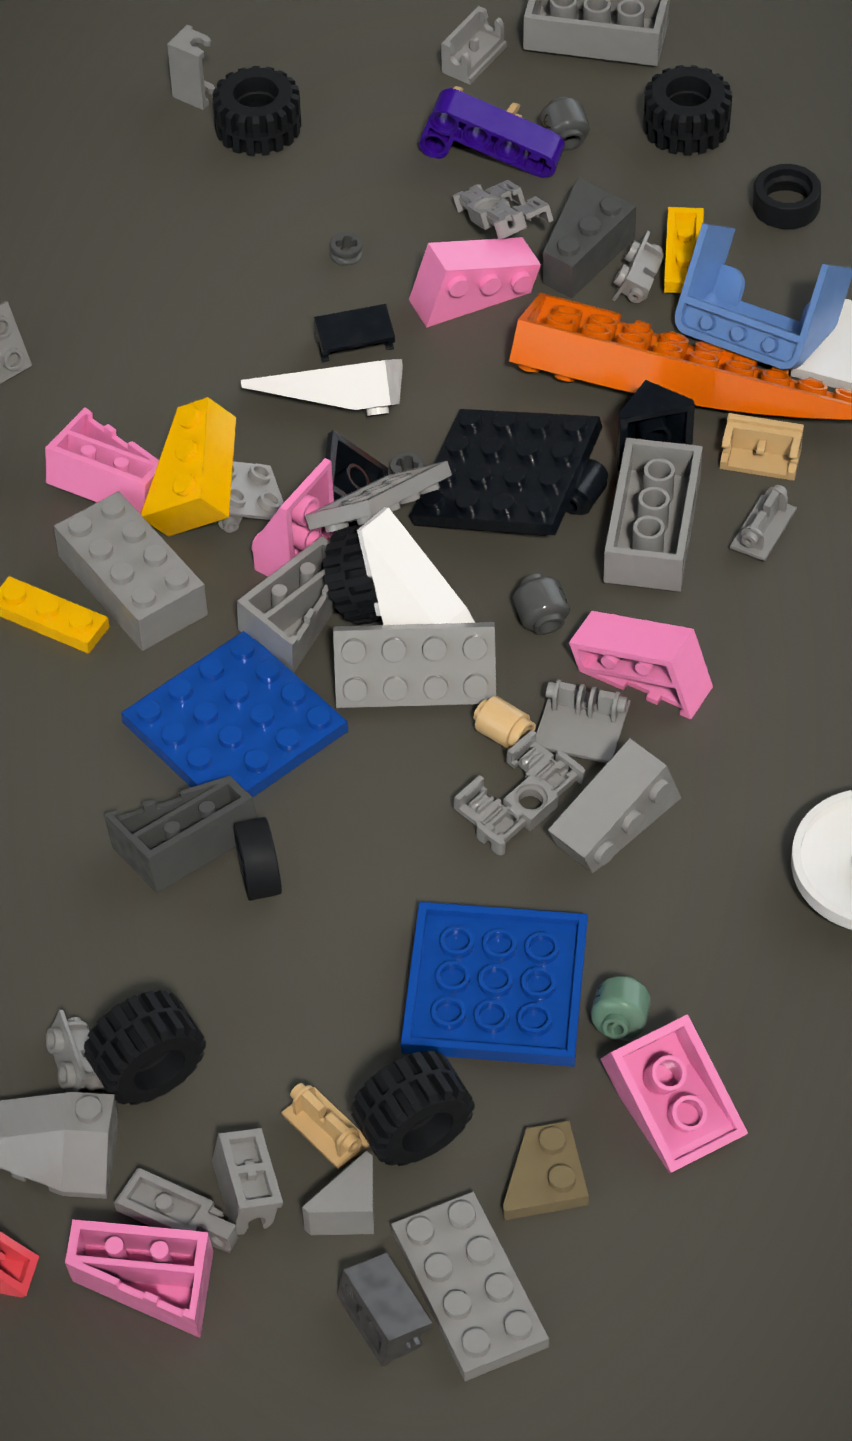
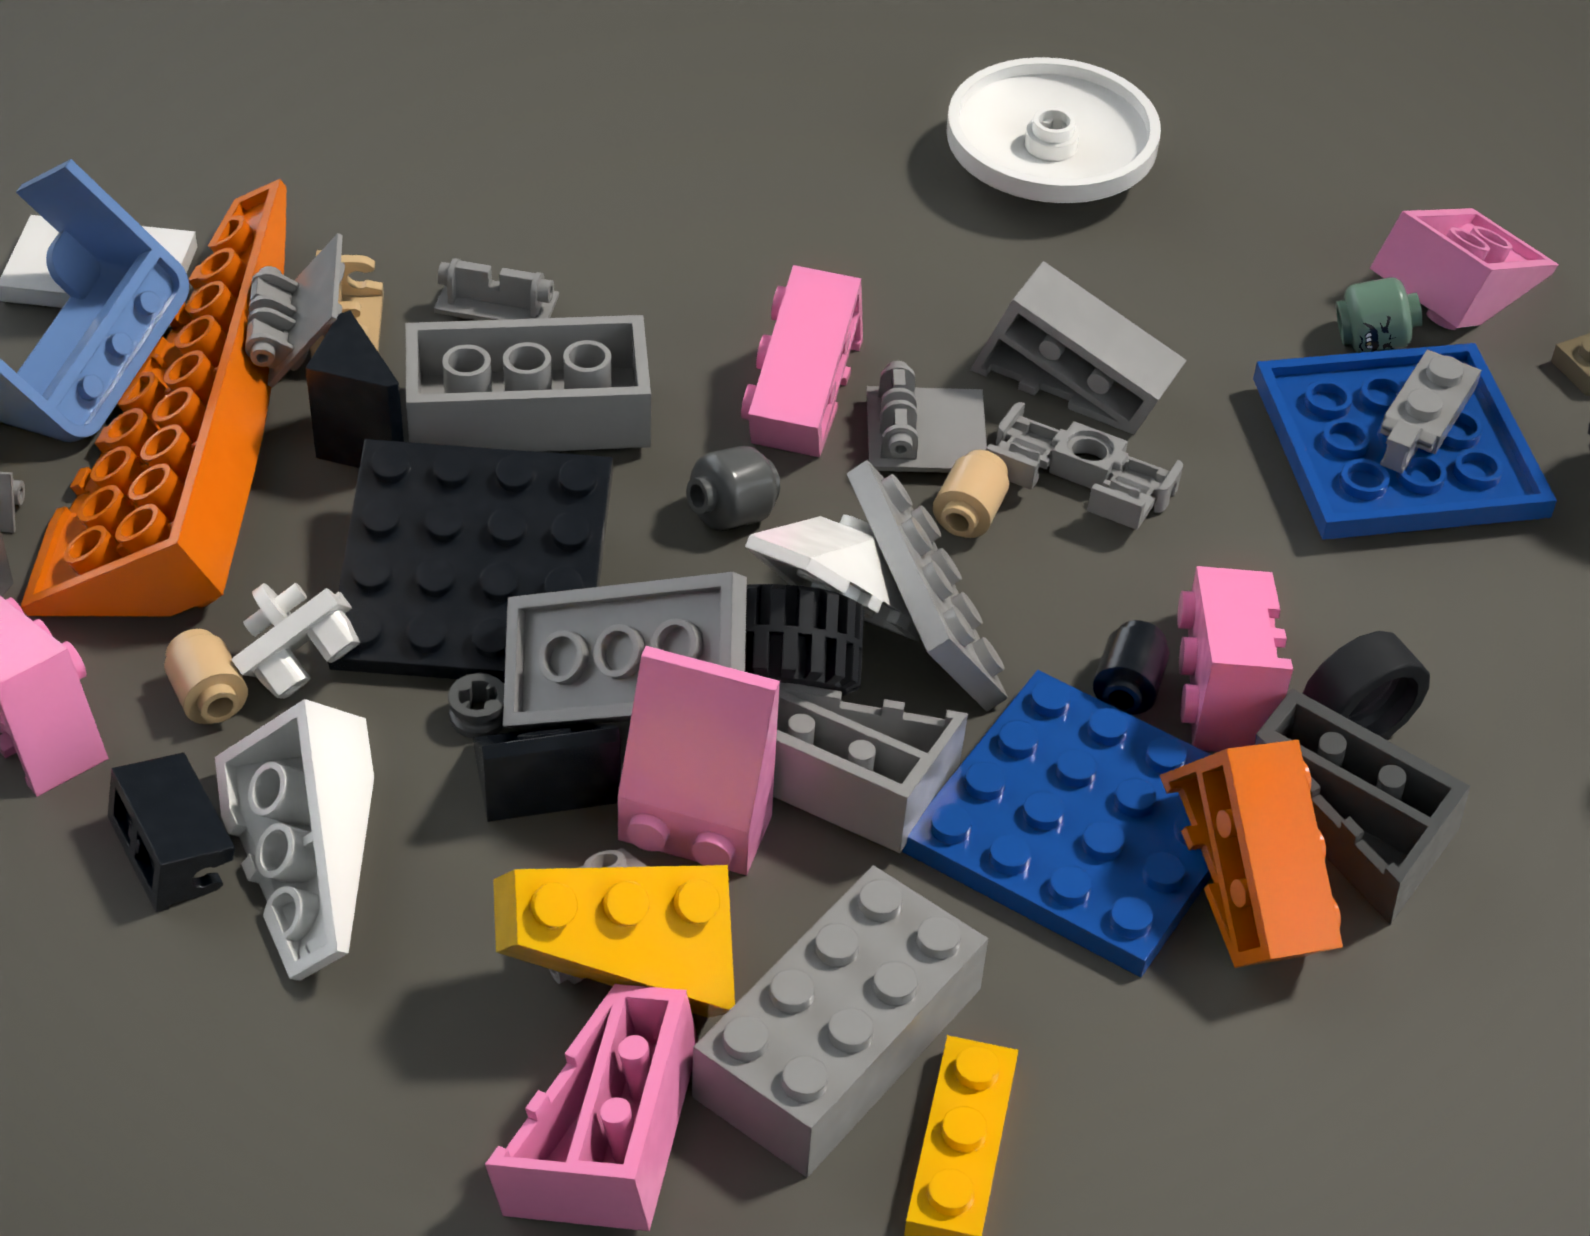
camera: 110 degrees left, 5 degrees down
(155, 756) = (1262, 850): none -> orange wedge
(316, 807) = (1231, 656): none -> bright pink wedge
(331, 765) = (1132, 667): none -> black brick
(458, 357) = (204, 677): none -> tan brick
(463, 388) = (272, 654): none -> white hips
(502, 988) = (1426, 408): none -> light grey hinge
(709, 401) = (293, 314): none -> light grey hinge

